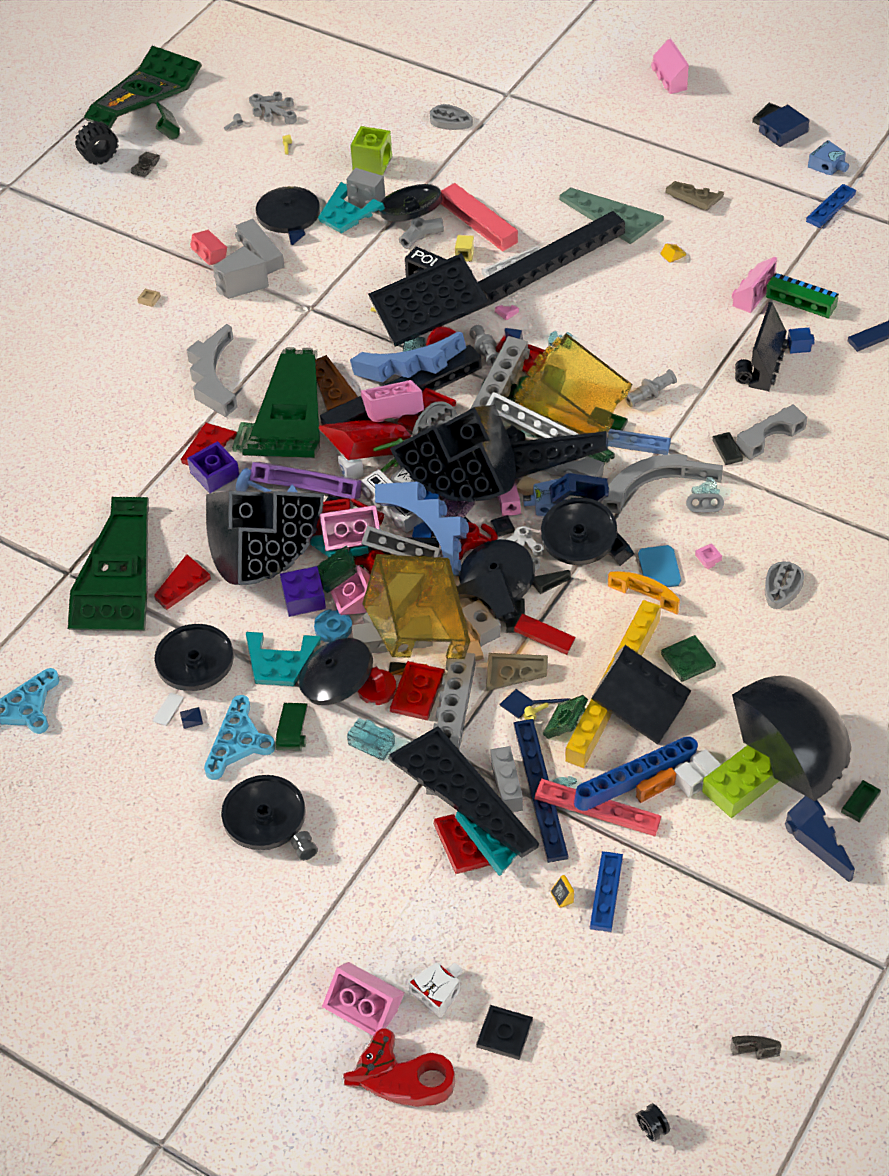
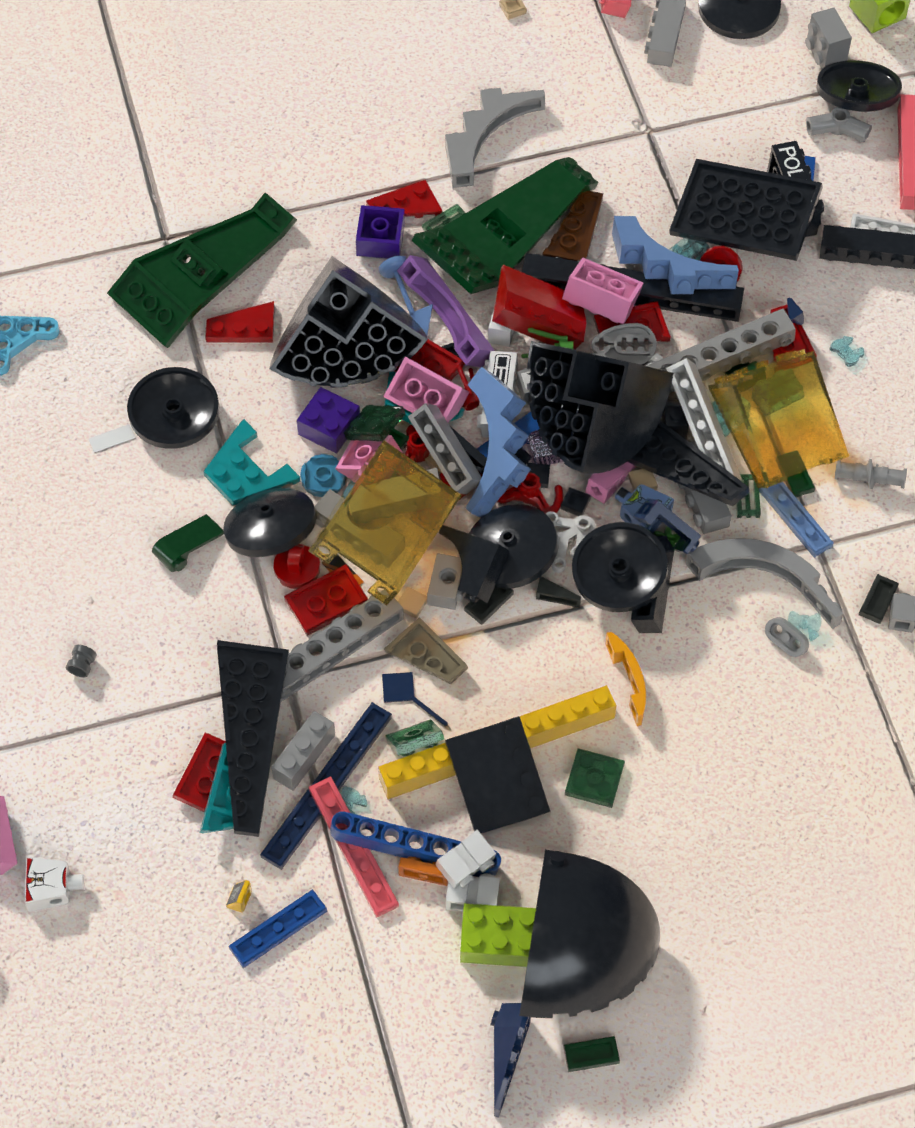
camera: 40 degrees right, 10 degrees up
(191, 717) = (119, 462): dark blue slope -> none
(234, 747) = (123, 520): medium azure beam -> none
(240, 274) = (610, 44): light grey slope -> none
(263, 812) = (78, 602): black dish -> none
(295, 236) = (715, 39): dark blue slope -> none
(343, 215) = (781, 48): teal wing -> none
(371, 738) = (236, 611): clear light blue brick -> none
(465, 245) = (860, 176): light yellow brick -> none
(484, 344) = (762, 297): light grey piece -> none
(504, 1032) = (62, 972): black tile -> none
(506, 312) = (829, 279): bright pink tile -> none
(530, 711) = (396, 705): light yellow hand -> none
(544, 634) = (490, 641): red tile -> none
(660, 565) = (674, 665): dark azure piece -> none
(679, 751) = (466, 859): none -> white brick
(708, 556) = (725, 693): bright pink tile -> none
(791, 588) = (764, 769): light grey piece -> none

